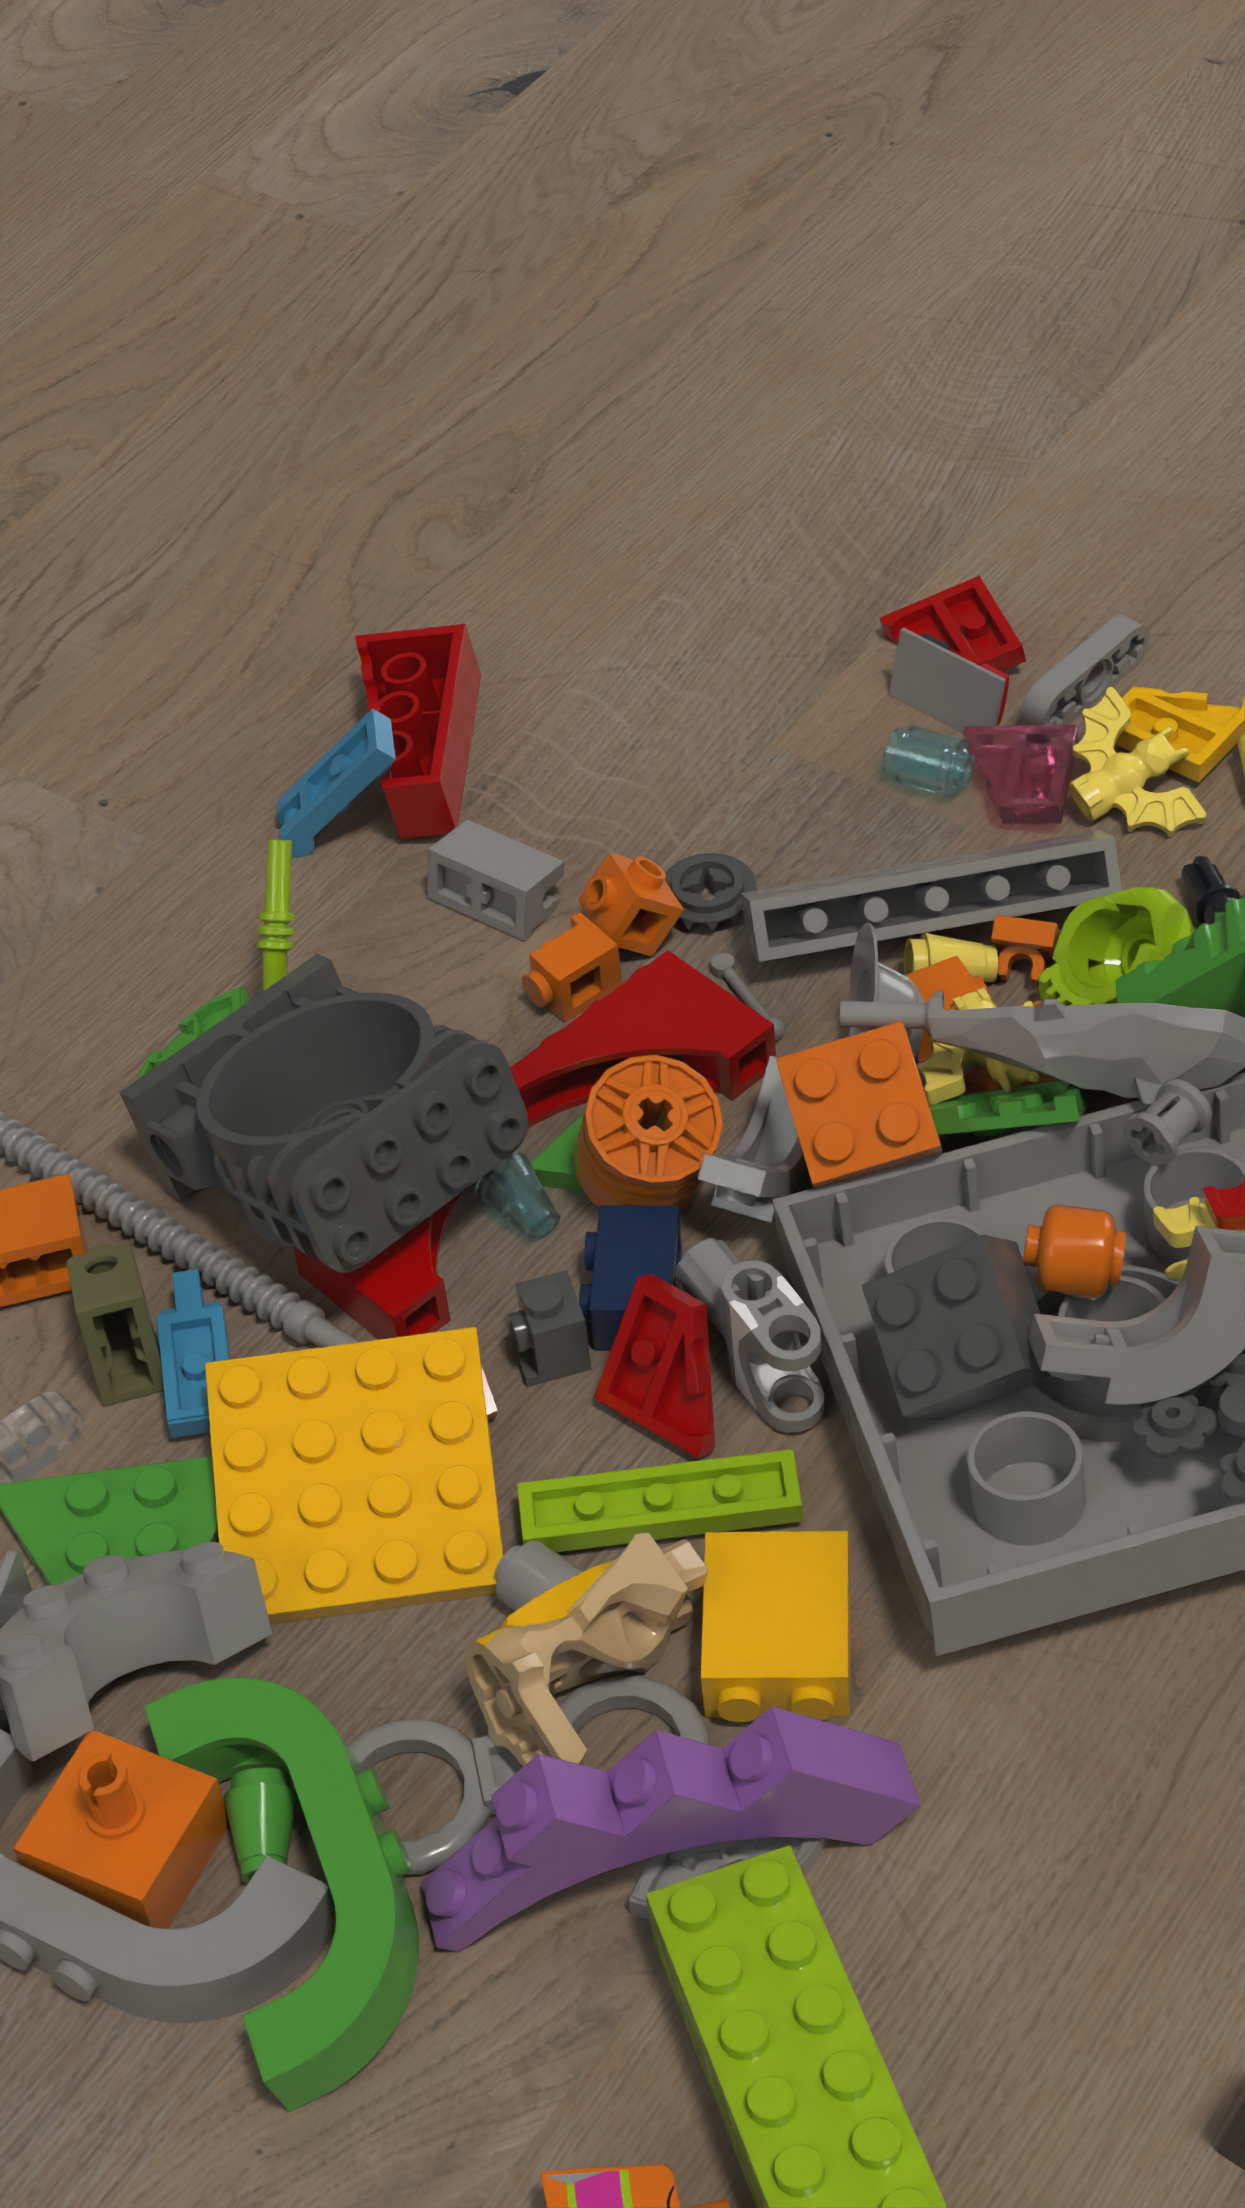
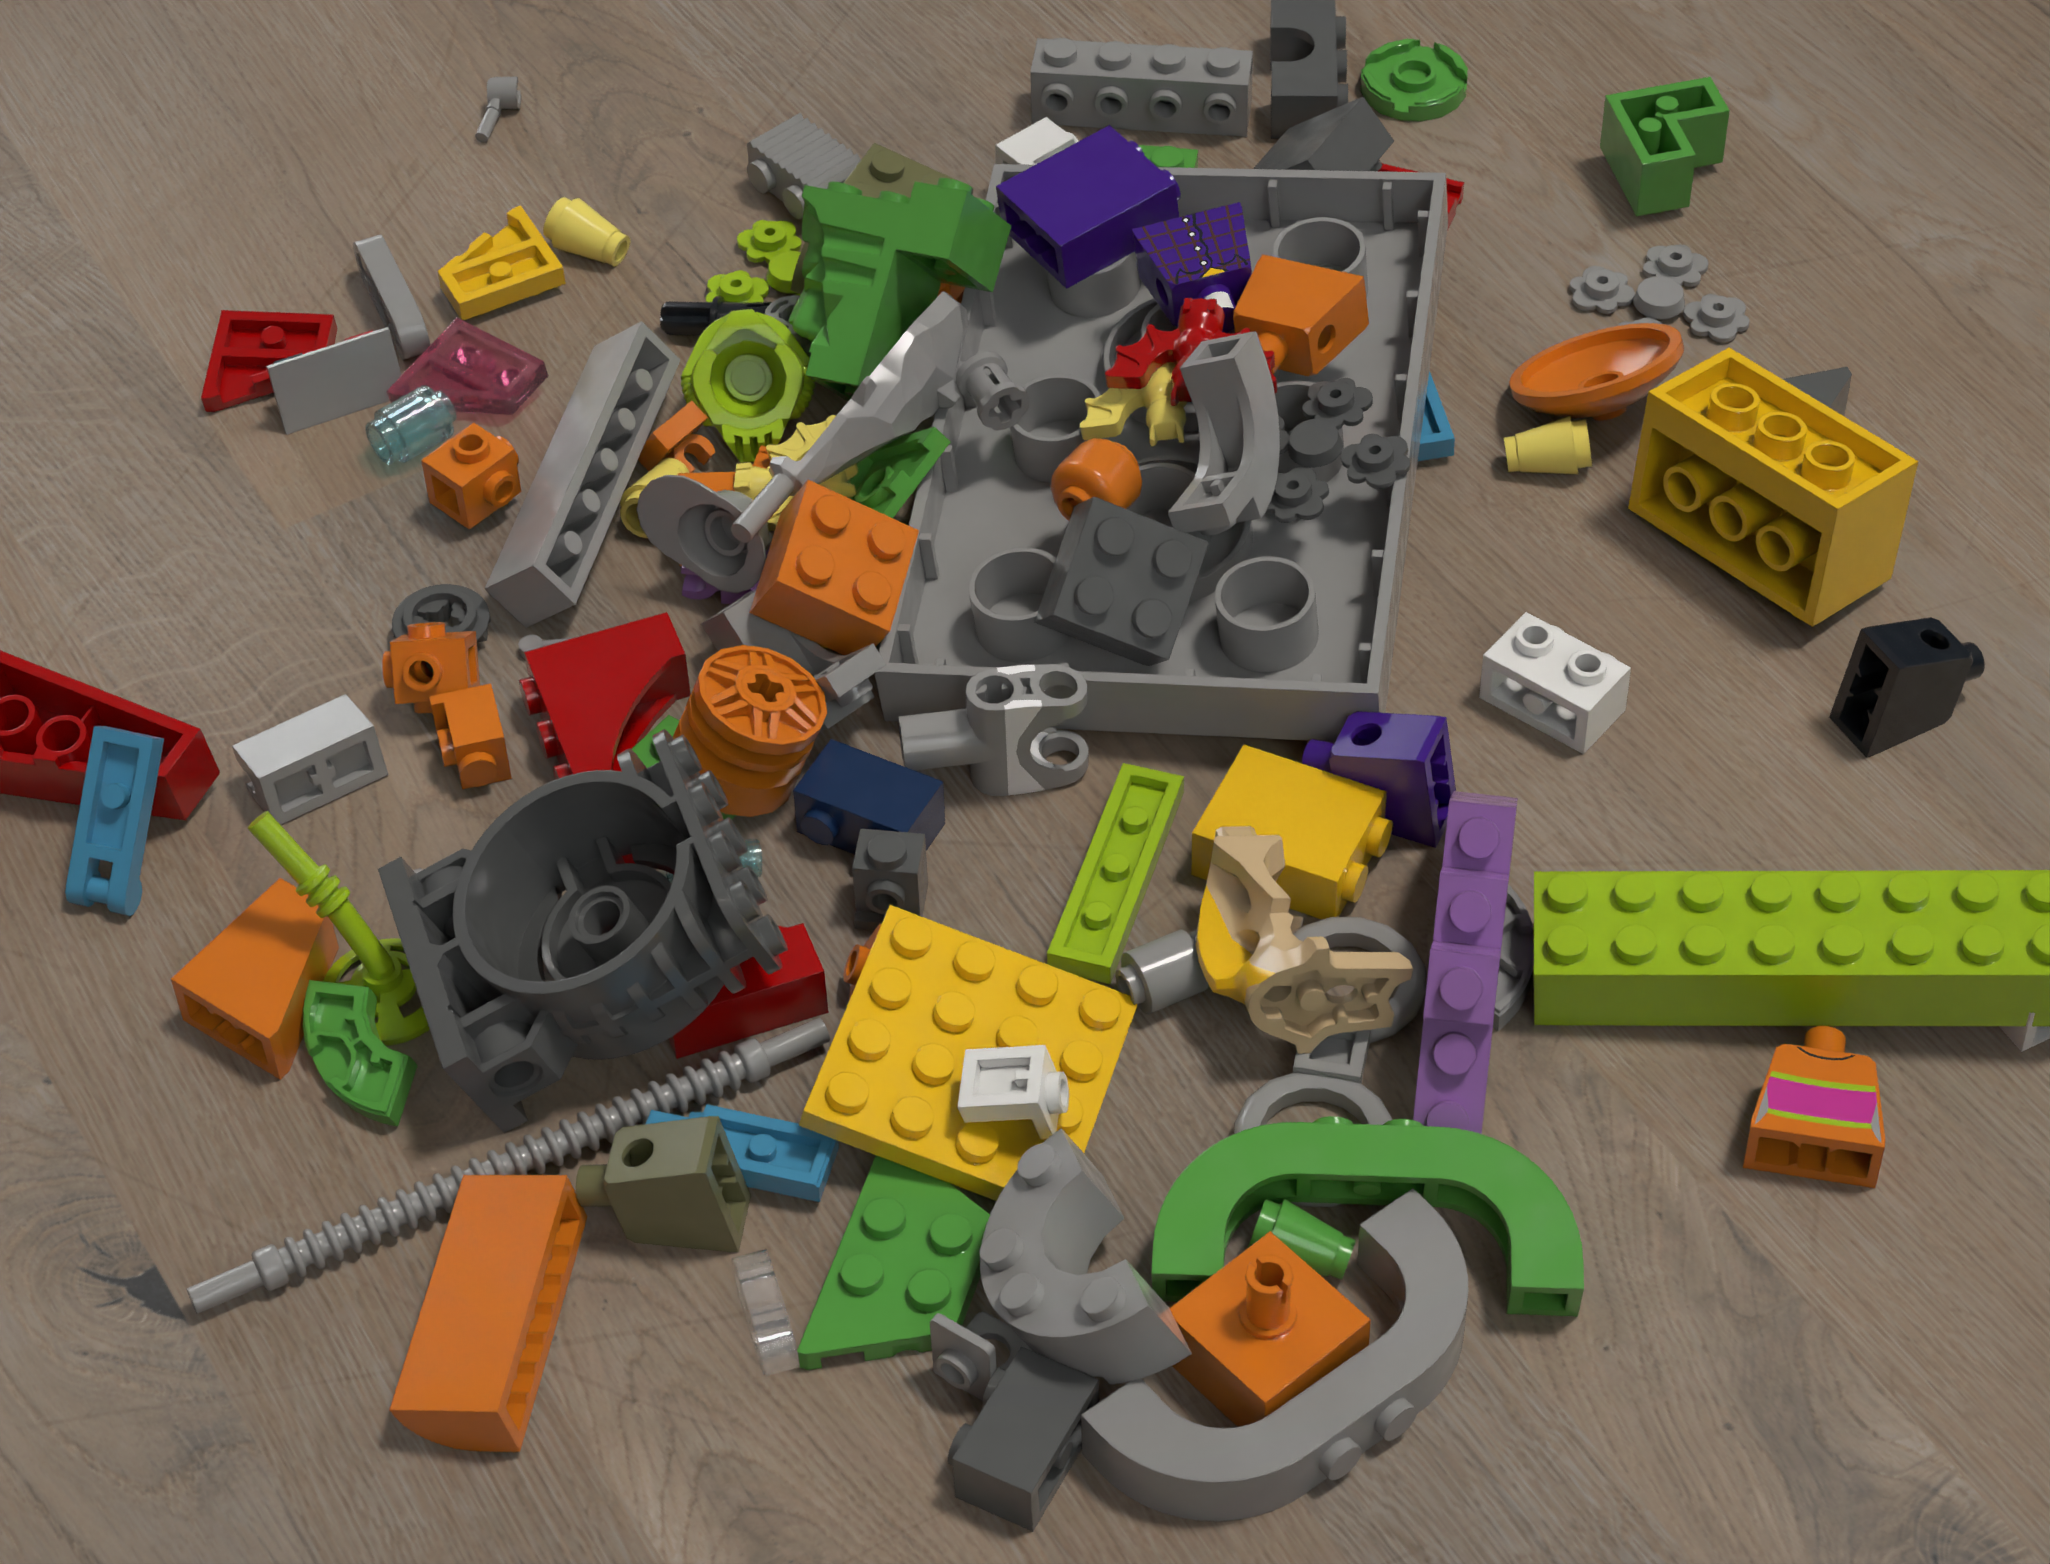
camera: 70 degrees left, 0 degrees up
(217, 952) = (255, 978): none -> orange slope
(298, 1511) = (1013, 1086): none -> white bracket
(662, 1366) = (990, 811): red wing -> none
(881, 823) = (472, 475): none -> orange brick
(889, 1649) = (1398, 755): none -> dark purple torso
(1119, 778) = (534, 316): light yellow animal -> none
(1125, 1788) = (1554, 682): none -> white brick

